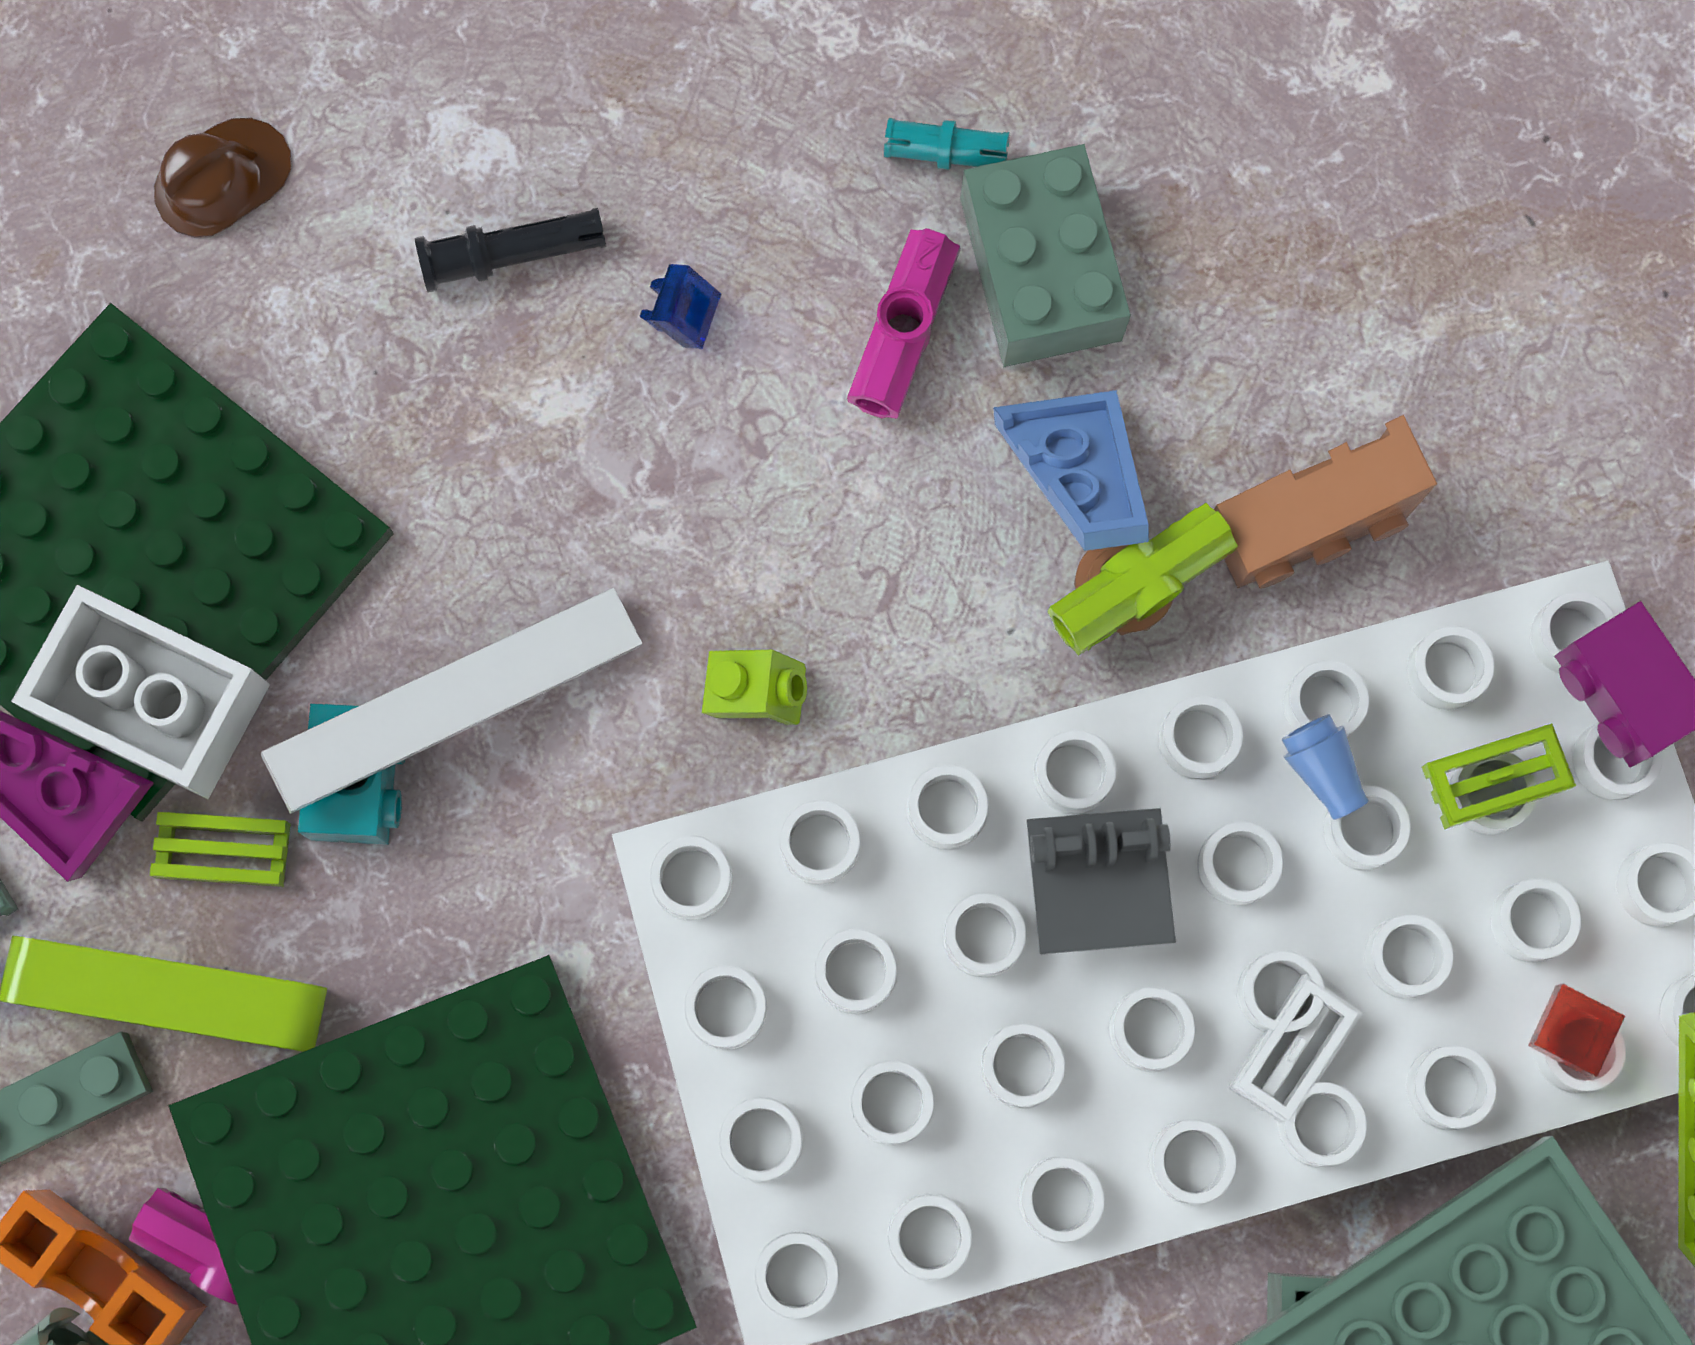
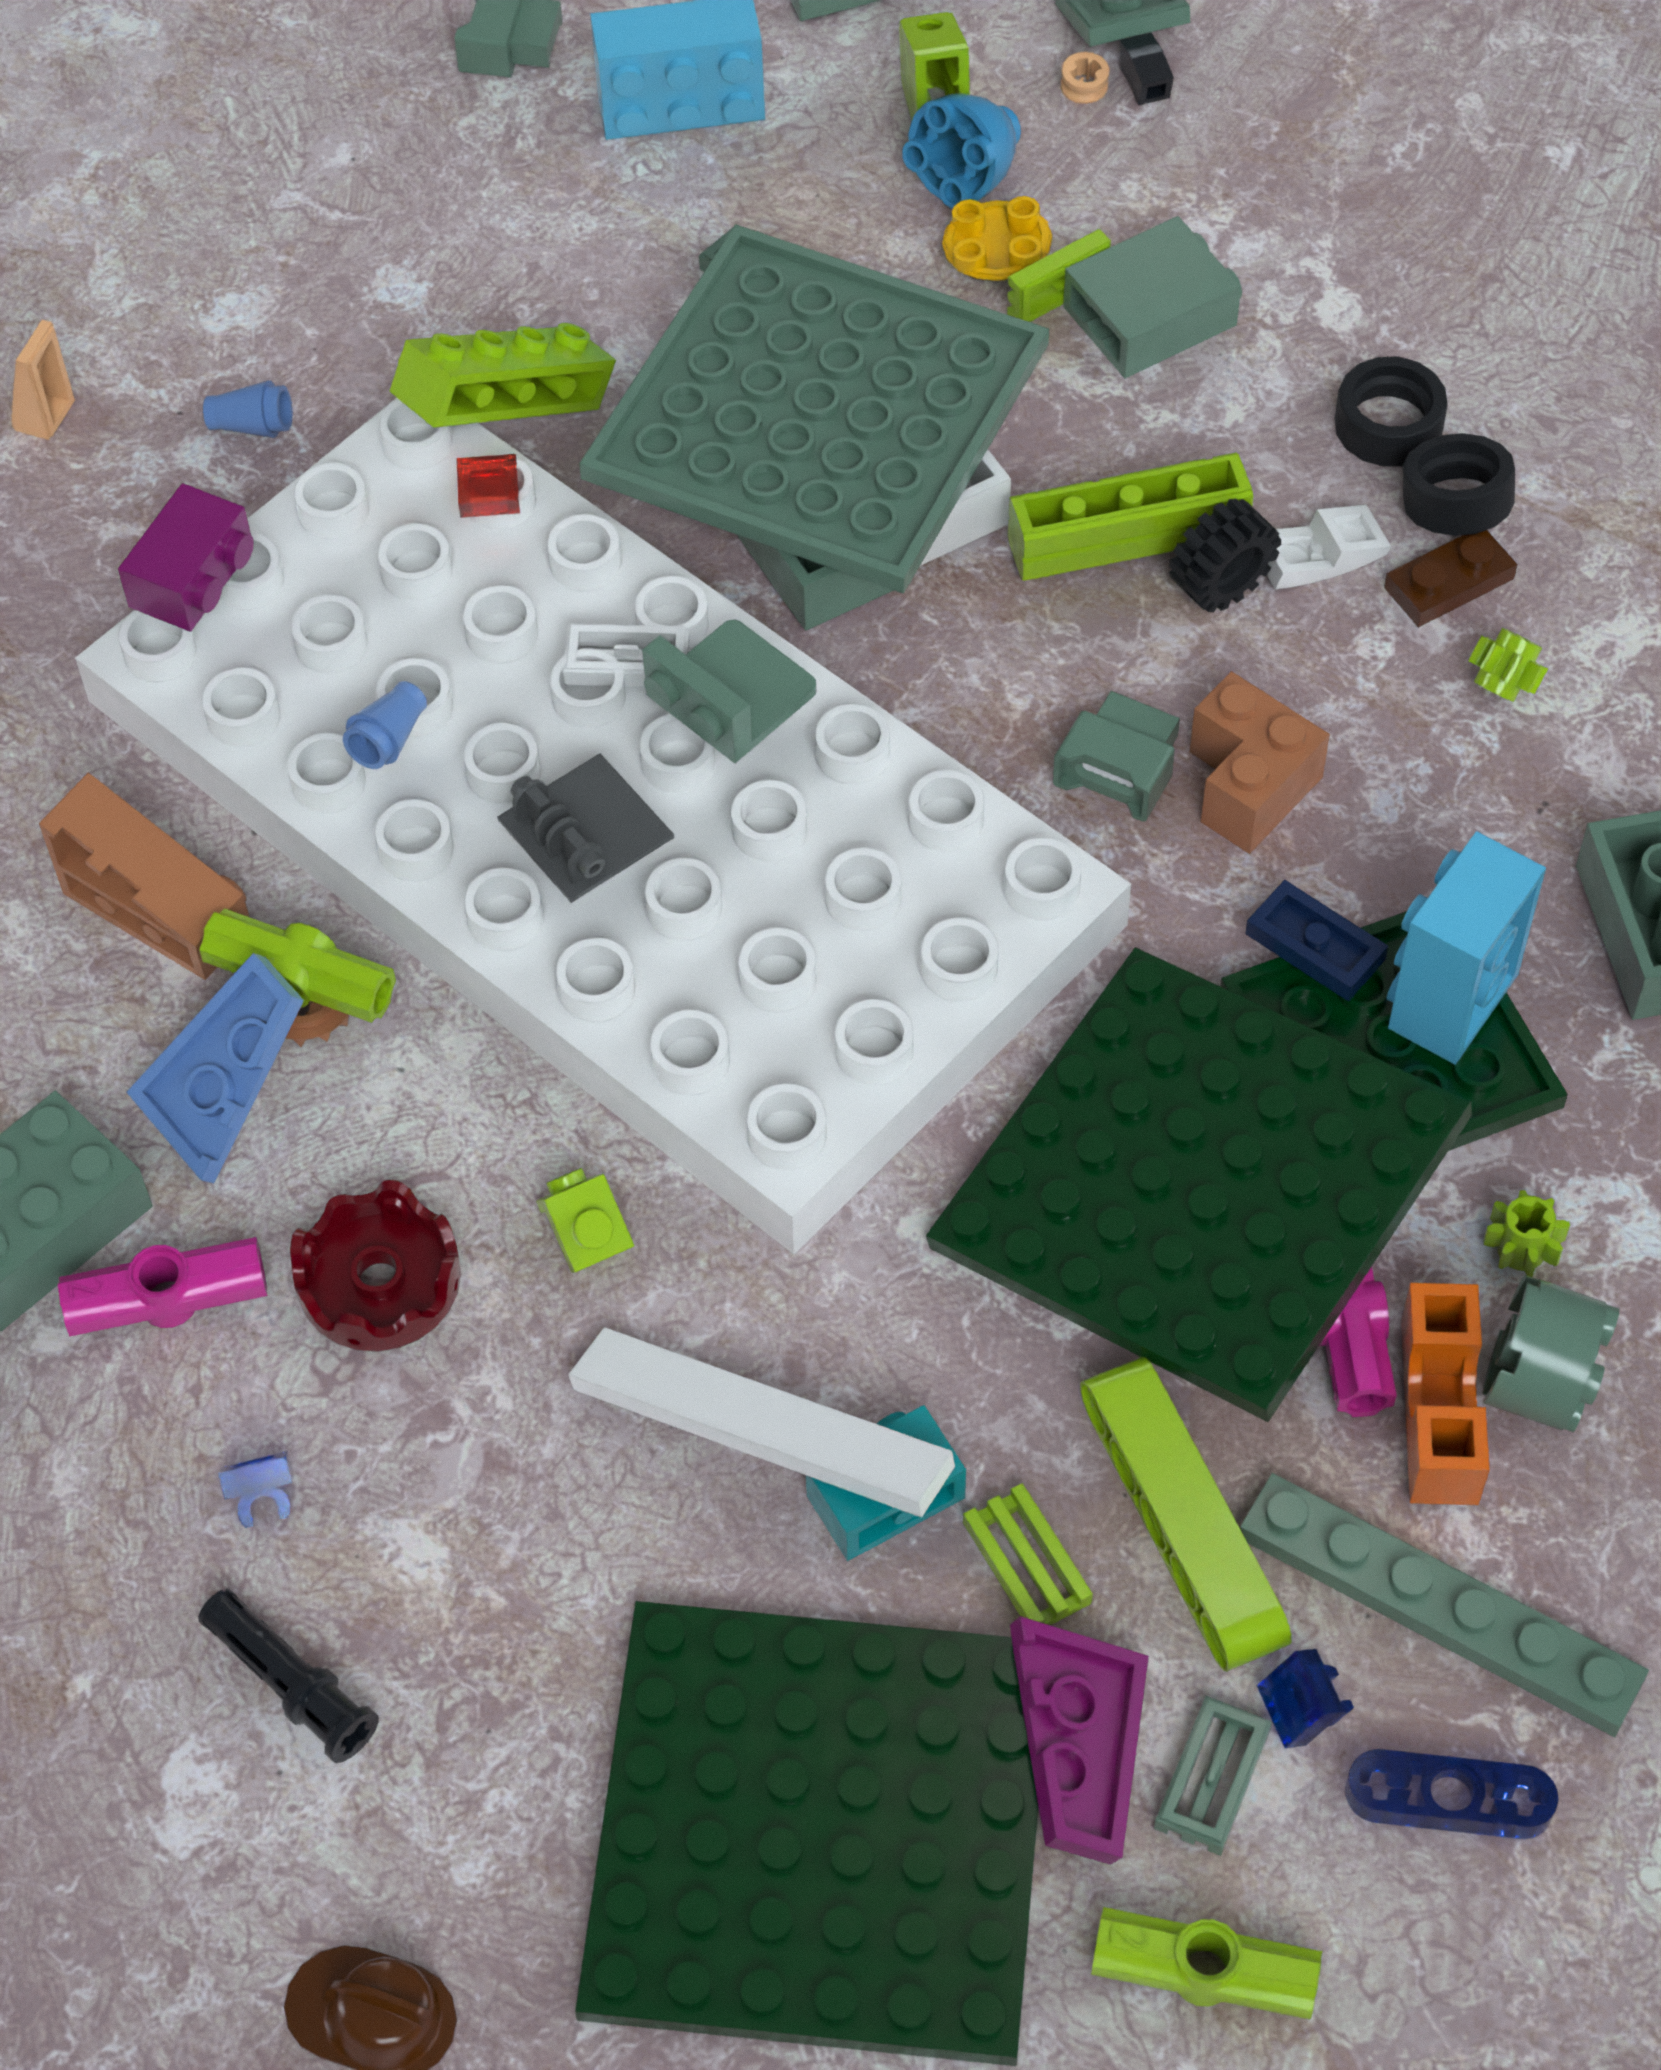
camera: 120 degrees left, 20 degrees down
(142, 691) = (937, 1661): white brick -> none
(801, 450) = (366, 1231): none -> dark red plate
(1174, 1106) = (727, 687): none -> sand green bracket
(1446, 793) = (333, 659): lime tile -> none

